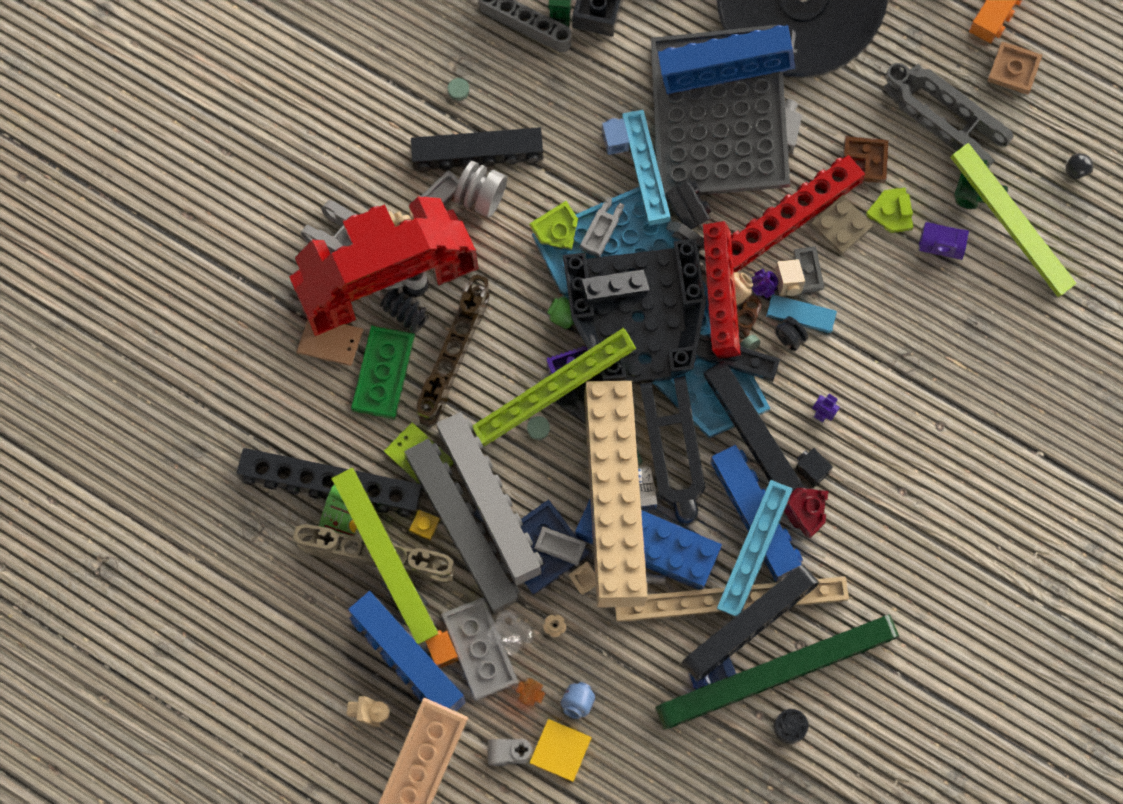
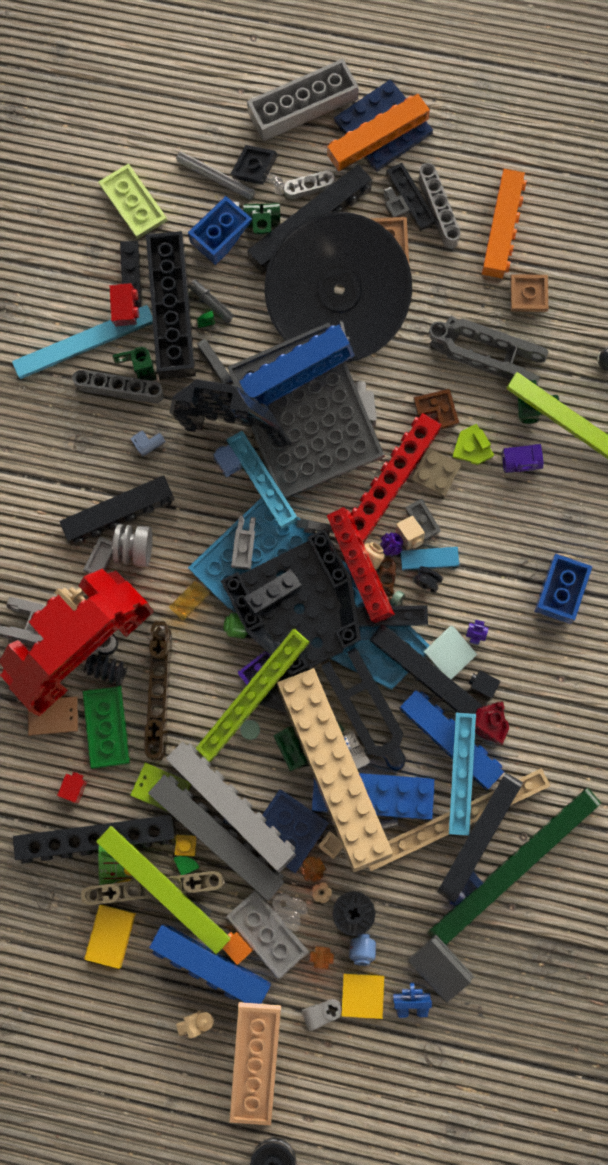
camera: 15 degrees left, 5 degrees up
(309, 590) = (110, 936): none -> yellow piece
(324, 421) = (72, 787): none -> red brick
(416, 541) = (186, 865): none -> green tile
(458, 89) = (84, 464): sand green tile -> none
(521, 269) = (189, 600): none -> clear yellow plate
(531, 91) = (146, 445): none -> sand blue piece
(554, 596) = (312, 869): none -> clear orange gear
(556, 227) = (206, 556): lime plate -> none
(560, 546) = (303, 825): light grey tile -> none
(576, 461) = (290, 748): none -> dark green piece
(582, 669) = (342, 918): none -> black wheel
(603, 771) = (412, 999): none -> blue hips
(633, 66) = (227, 403): none -> black wedge
(638, 29) = (214, 362): none -> dark grey beam
(657, 749) = (441, 968): none -> dark grey piece
(688, 204) = (307, 499): black brick -> none
(788, 419) = (450, 652): none -> light aqua tile
(791, 726) = (541, 908): black wheel -> none
(938, 393) = (563, 589): none -> blue brick

